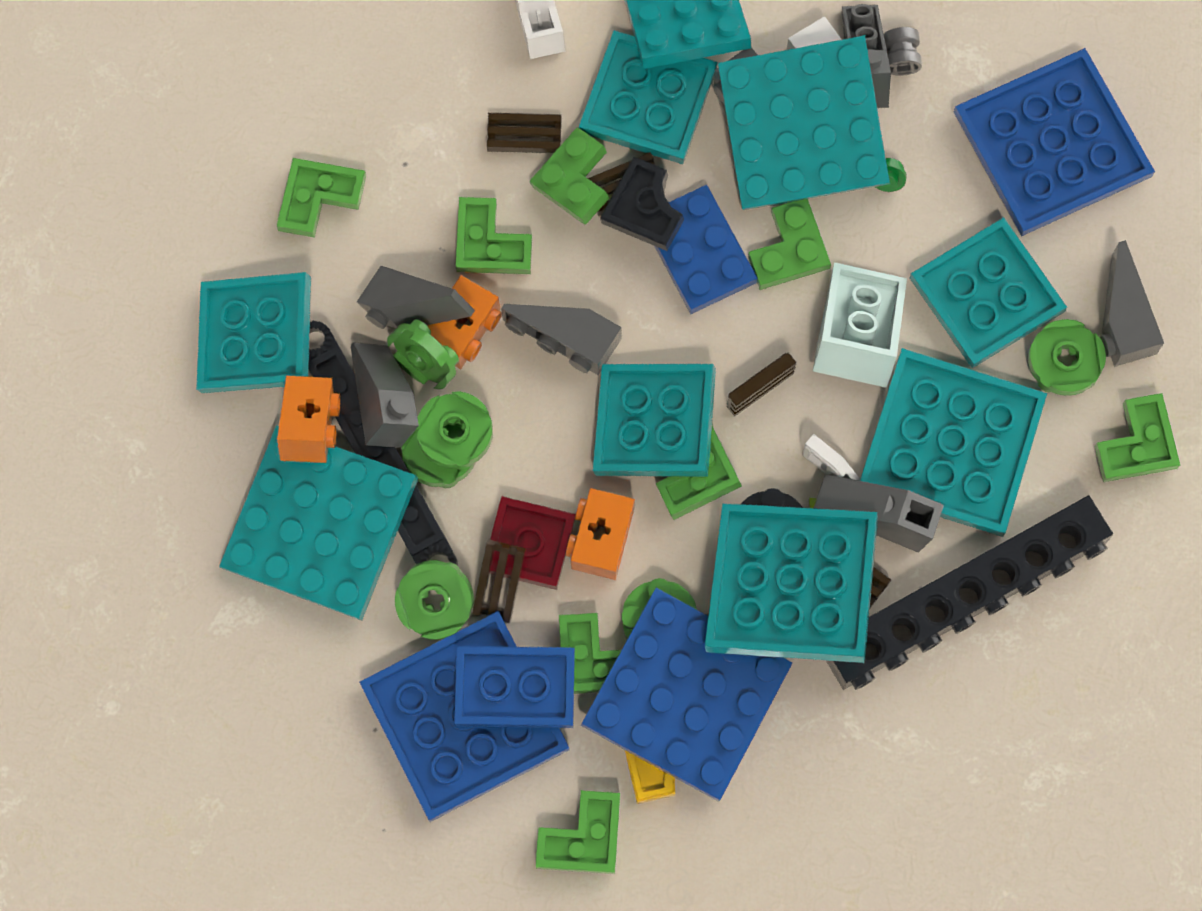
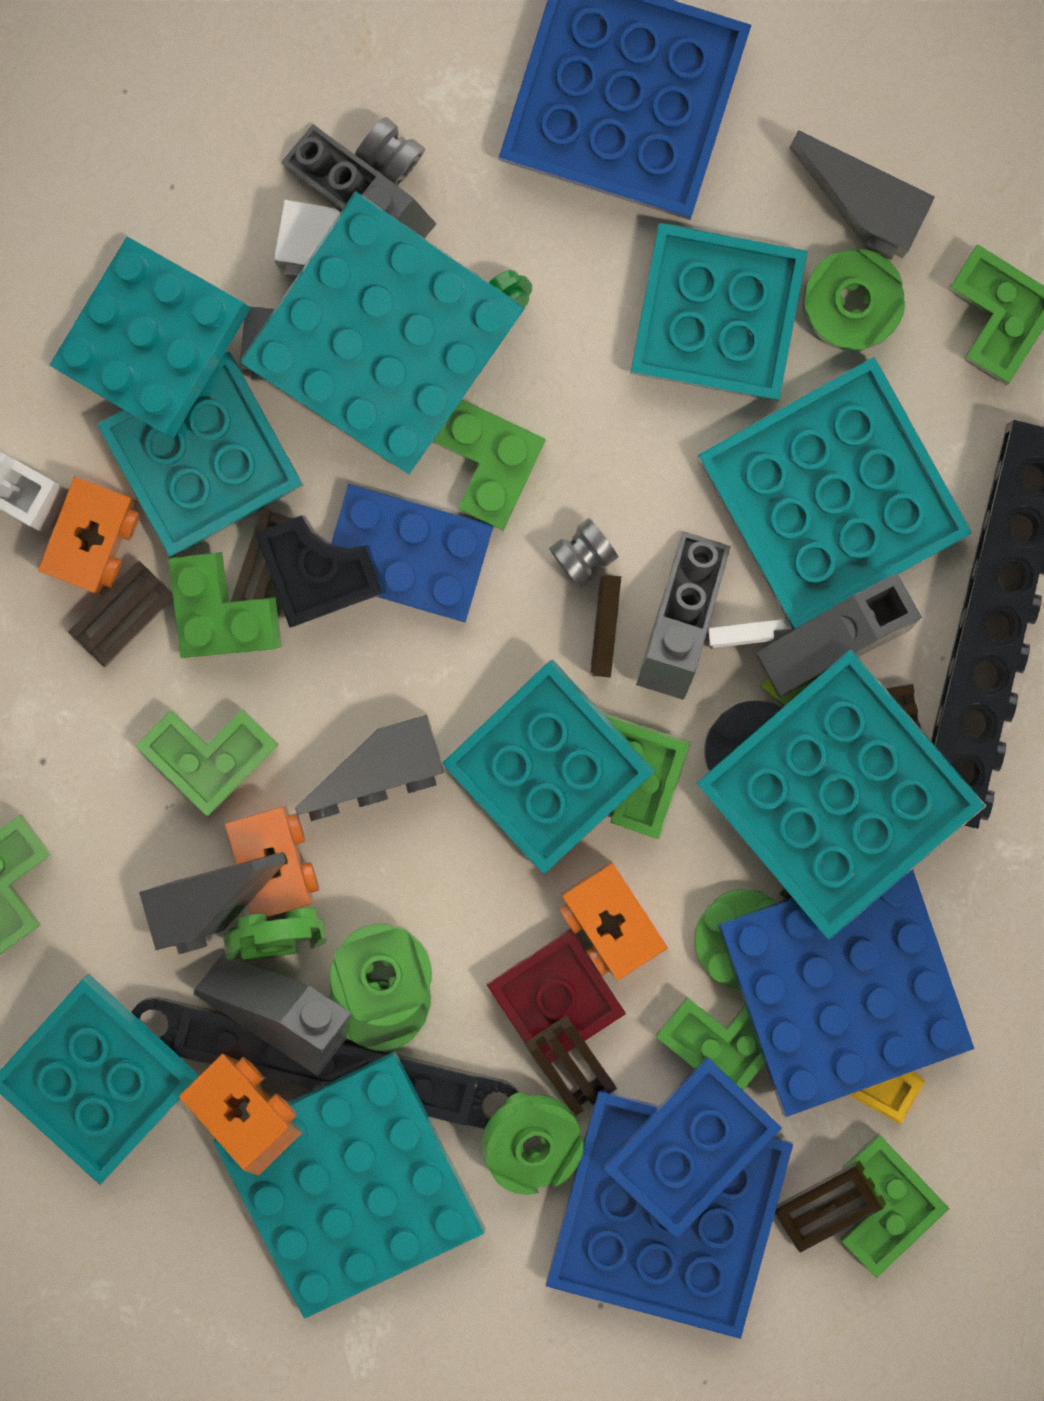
camera: 50 degrees left, 15 degrees up
(561, 63) = (66, 551): none -> orange brick
(580, 809) = (863, 1187): none -> dark brown tile
(789, 337) = (584, 552): none -> flat silver wheel
(791, 424) = (683, 616): none -> dark grey slope
(860, 325) = (635, 469): light aqua slope -> none

